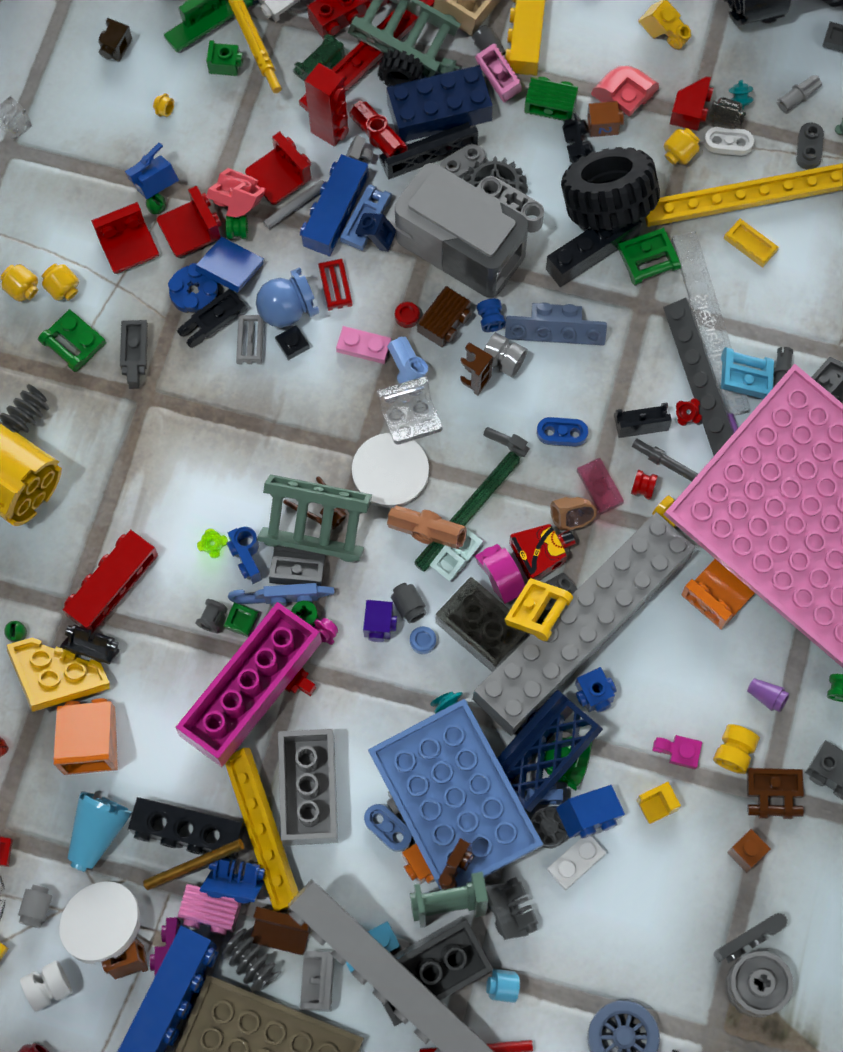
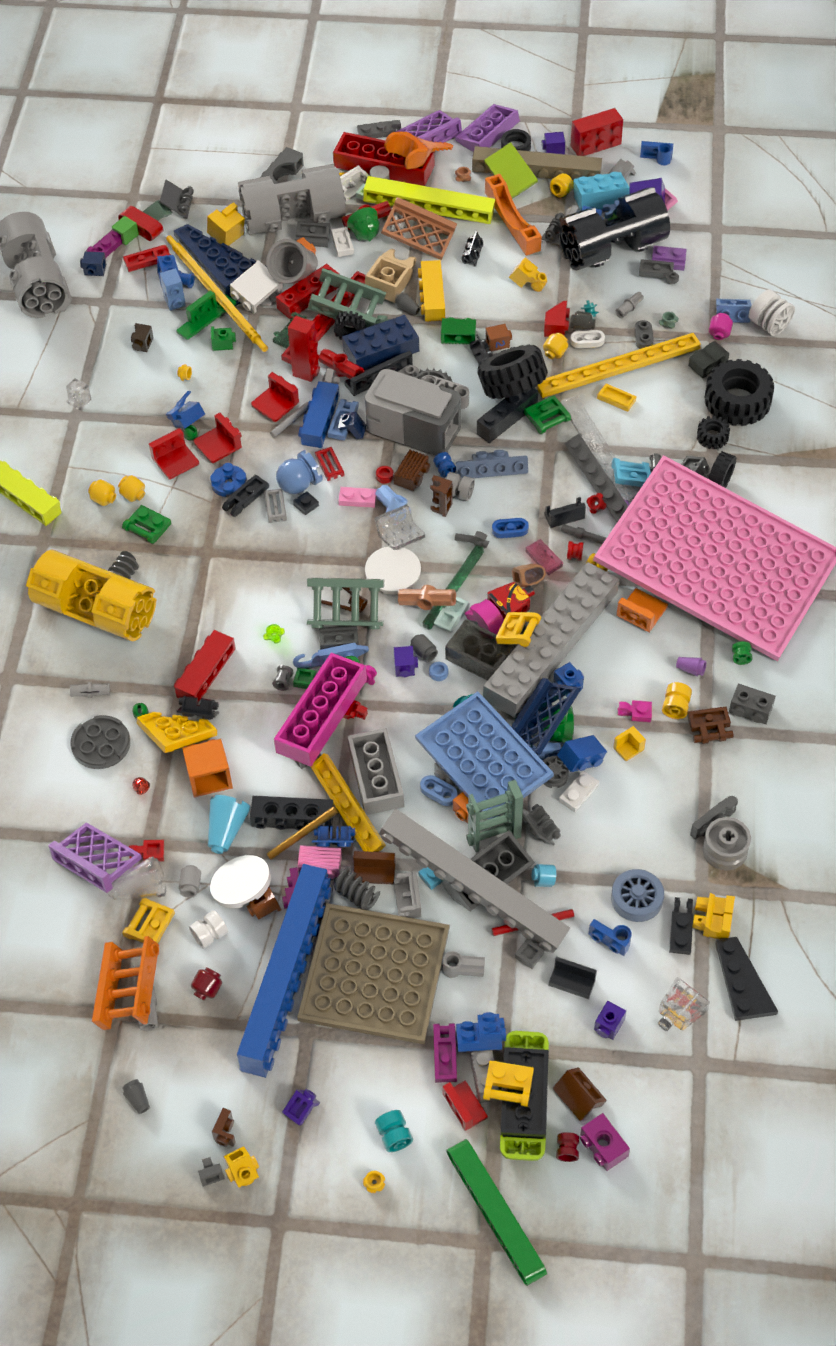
camera: 10 degrees left, 15 degrees down
(133, 350) = (193, 523): dark grey hinge -> none
(229, 264) = (252, 460): tile -> none
(236, 192) = (248, 415): coral brick -> none
(237, 227) = (252, 437): green wheel -> none
(247, 566) = (297, 630): blue plate -> none
(459, 859) = (496, 783): reddish brown plate -> none
(499, 72) = (419, 318): bright pink brick -> none
(626, 86) = (510, 314): coral brick -> none
(749, 850) = (700, 762): dark orange brick -> none

